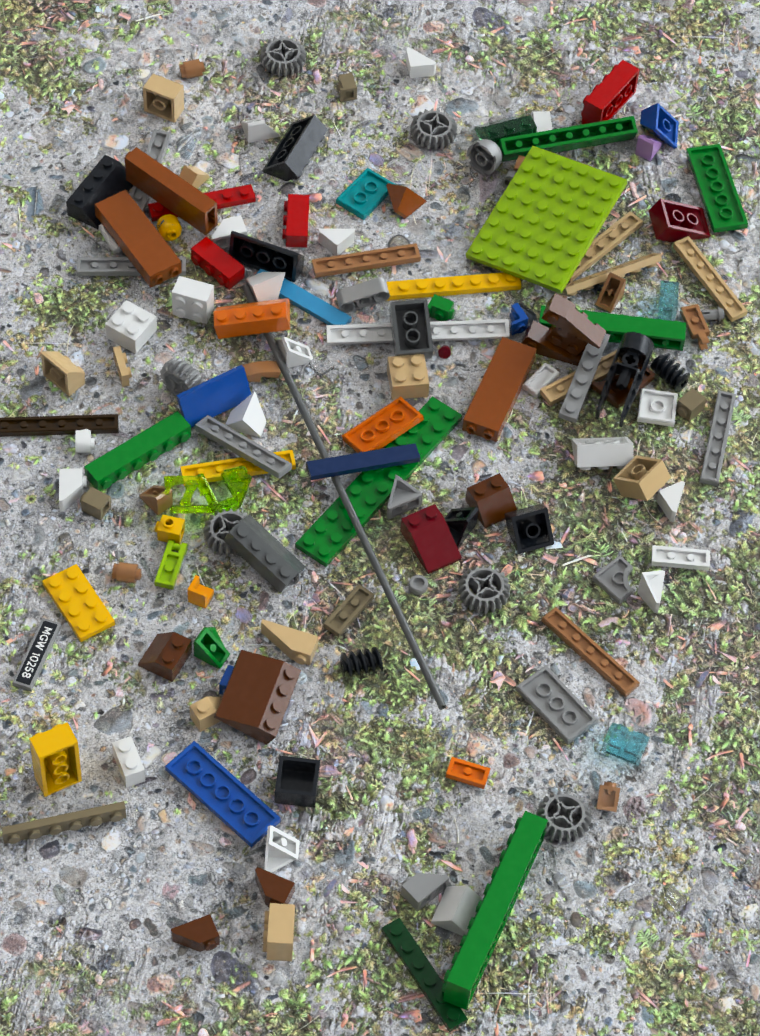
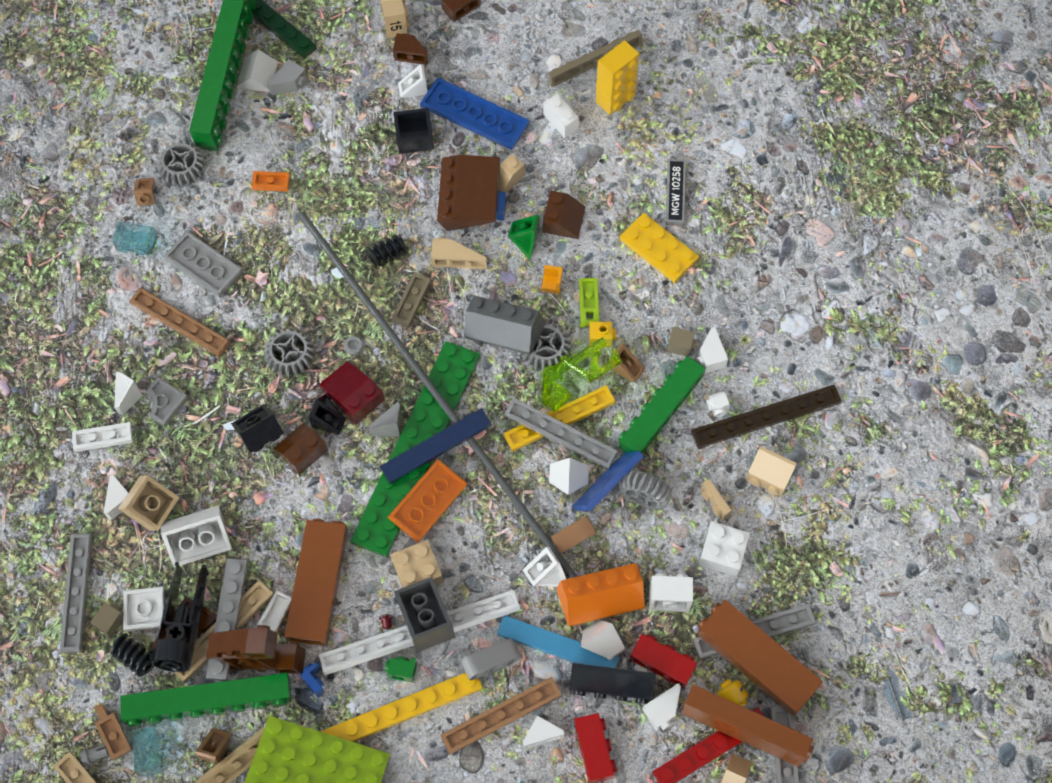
camera: 170 degrees right, 10 degrees up
(101, 183) = (829, 722): black slope -> none
(126, 572) = (626, 282): medium nougat brick -> none

